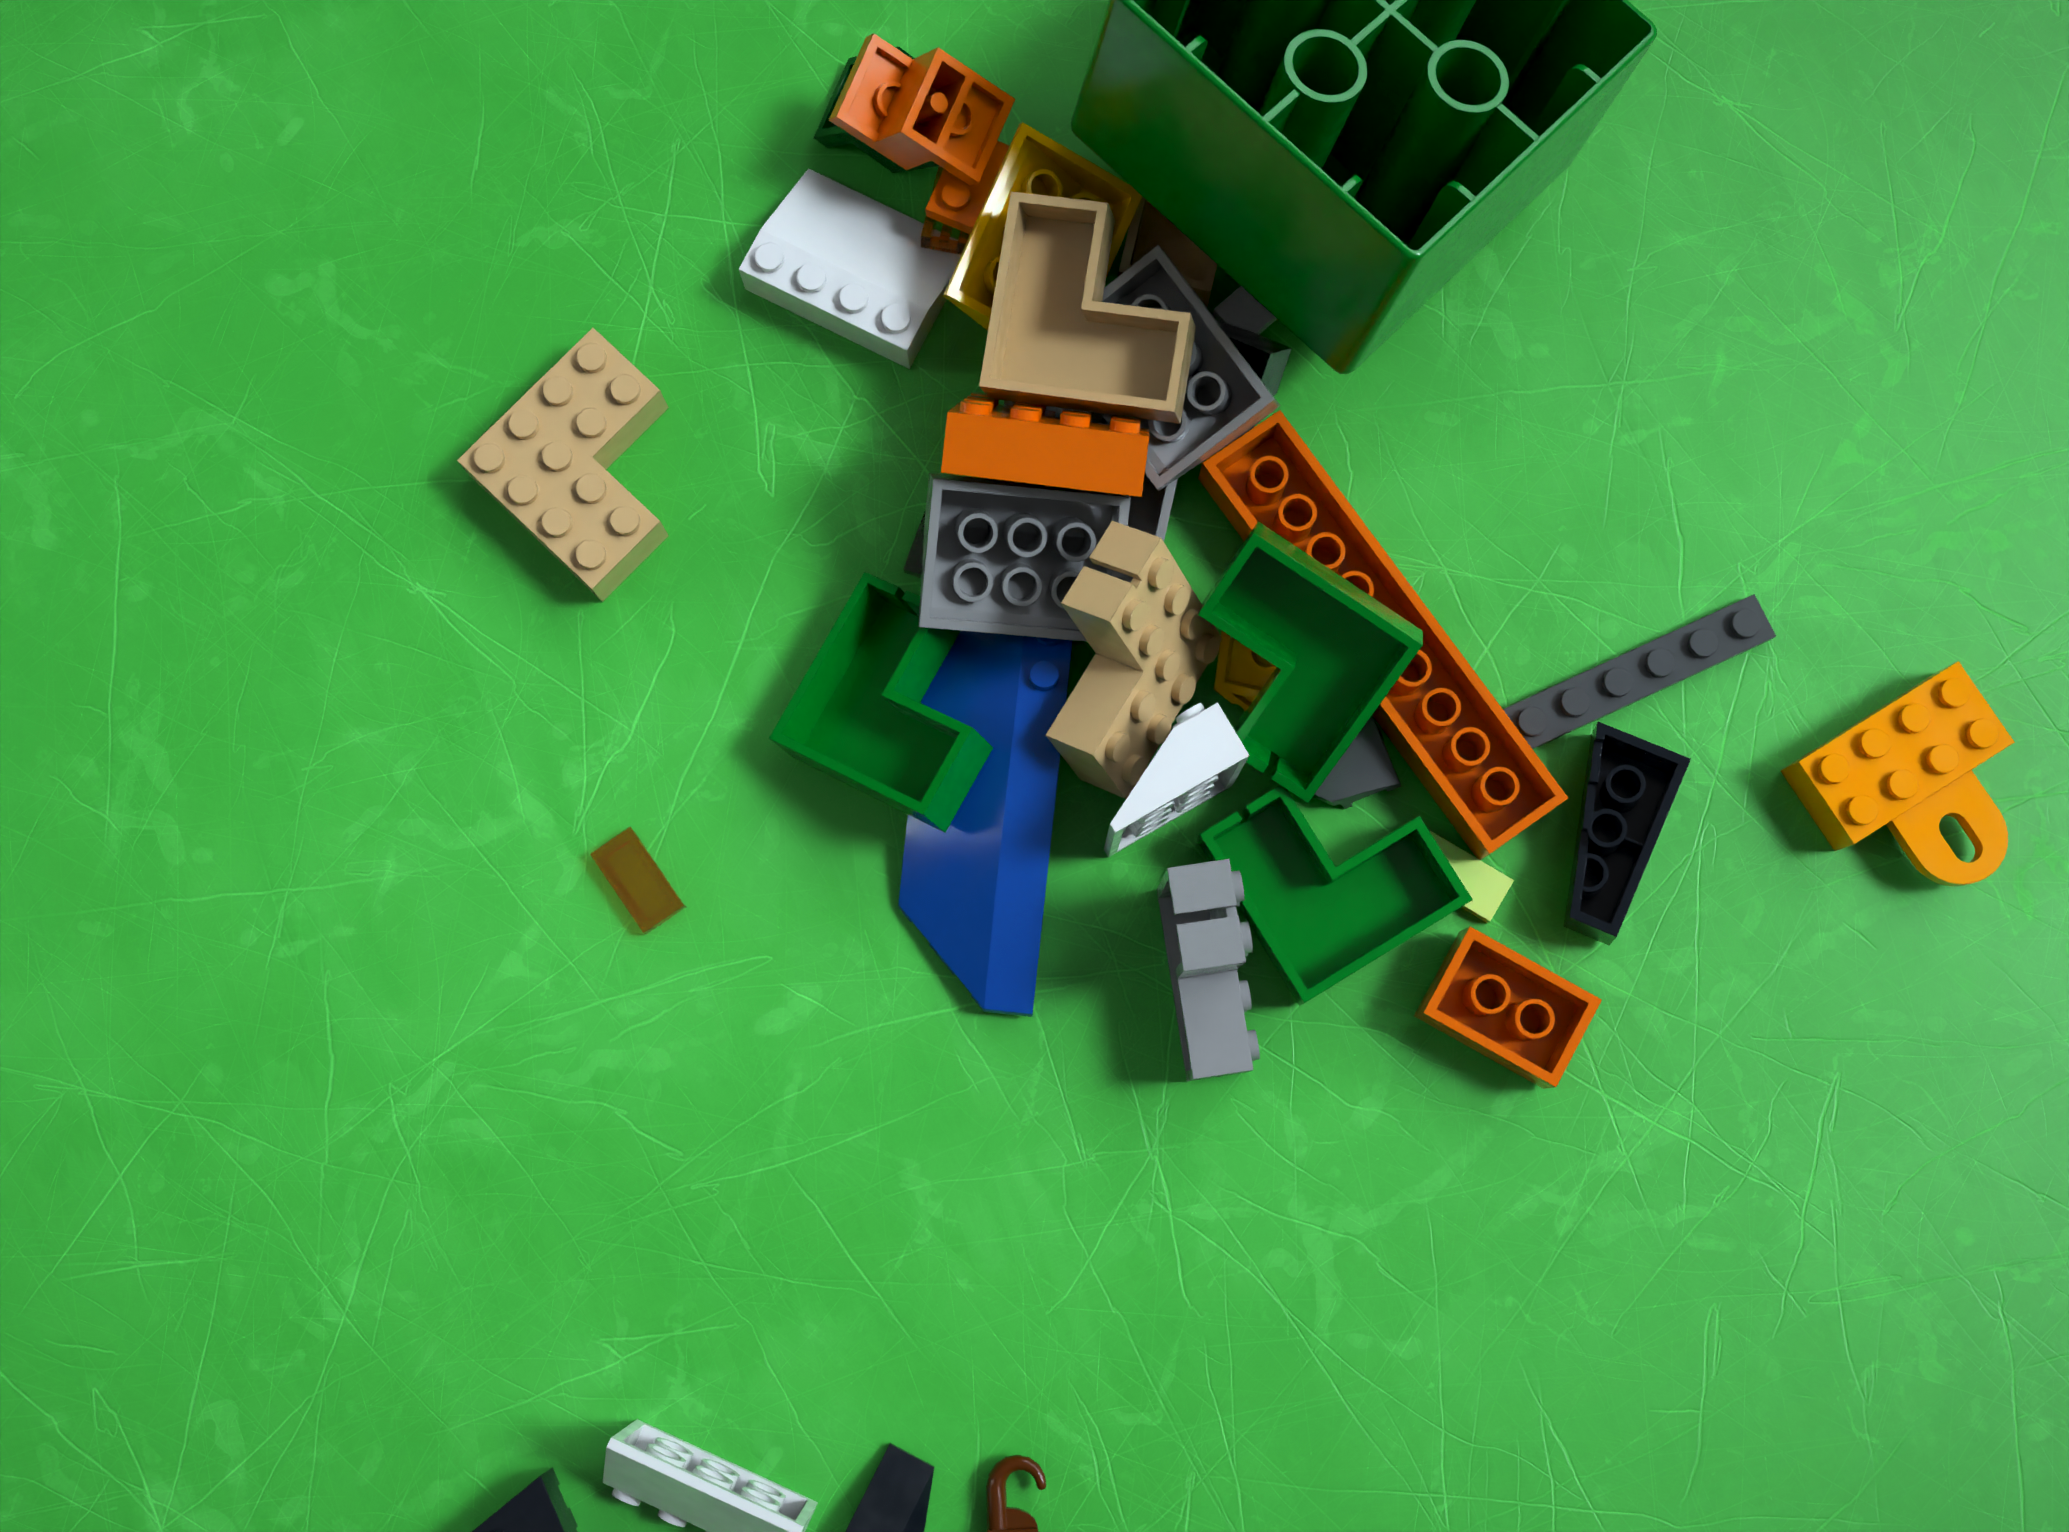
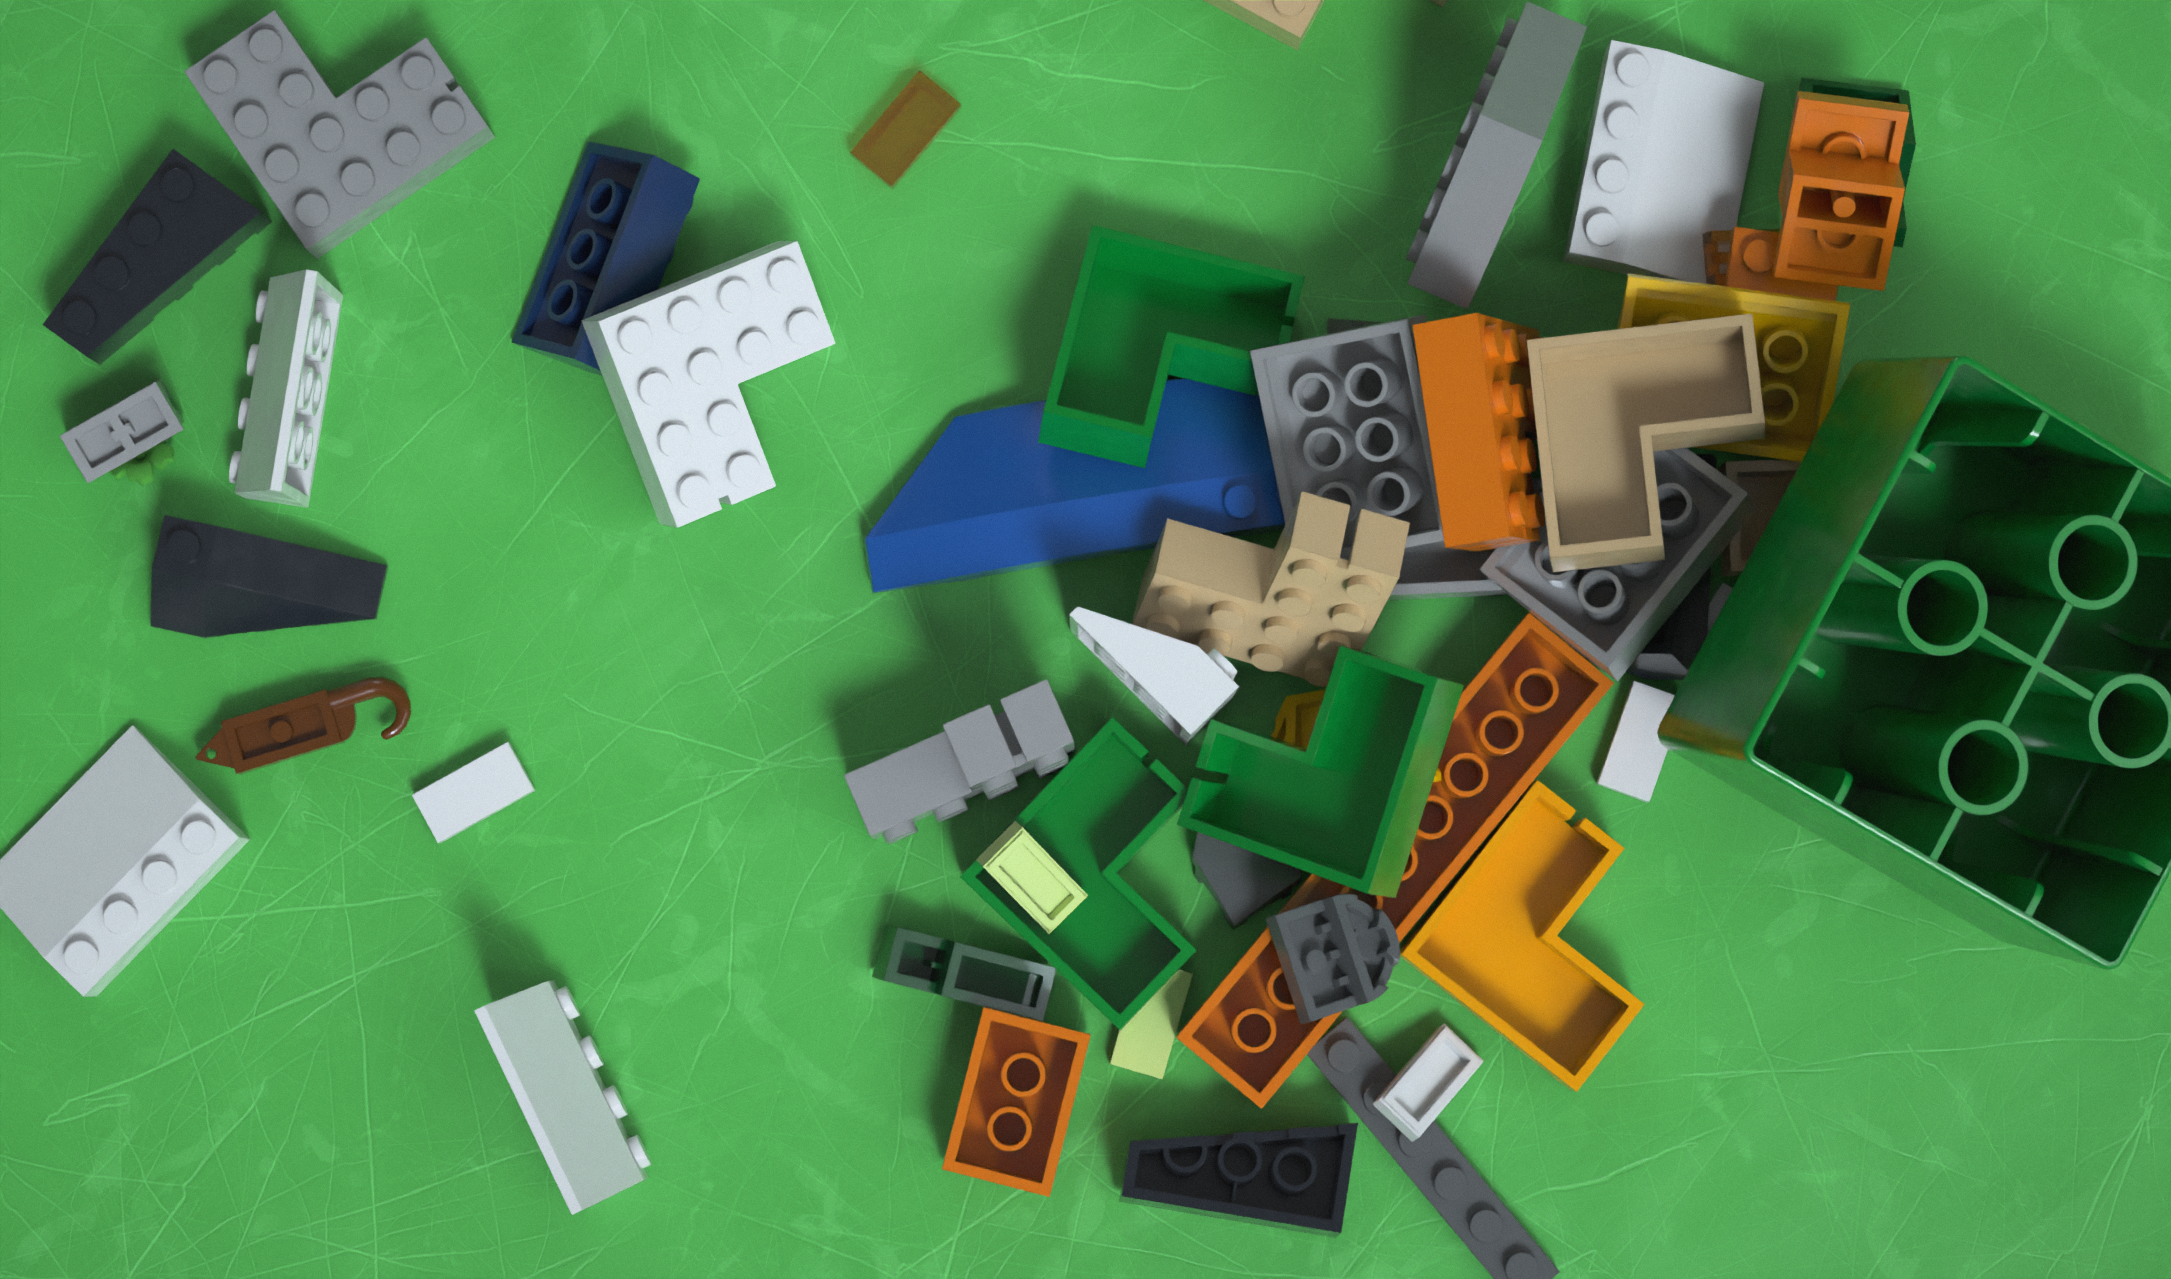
camera: 75 degrees right, 5 degrees up
(512, 1393) = (331, 157): none -> light grey piece
(674, 1172) = (605, 248): none -> dark blue slope
(787, 1130) = (678, 368): none -> white piece
(806, 371) = (1493, 153): none -> light grey piece
(1113, 1418) = (473, 792): none -> white tile
(1318, 941) = (1032, 877): none -> yellowish green tile
(1327, 412) = (1635, 749): none -> white tile
(1381, 1026) = (964, 972): none -> dark green slope
(1411, 1409) = (564, 1094): none -> white slope
(1455, 698) = (1334, 954): none -> dark grey slope
(1471, 563) = (1498, 943): none -> light orange piece
(1572, 658) = (1428, 1082): none -> white tile

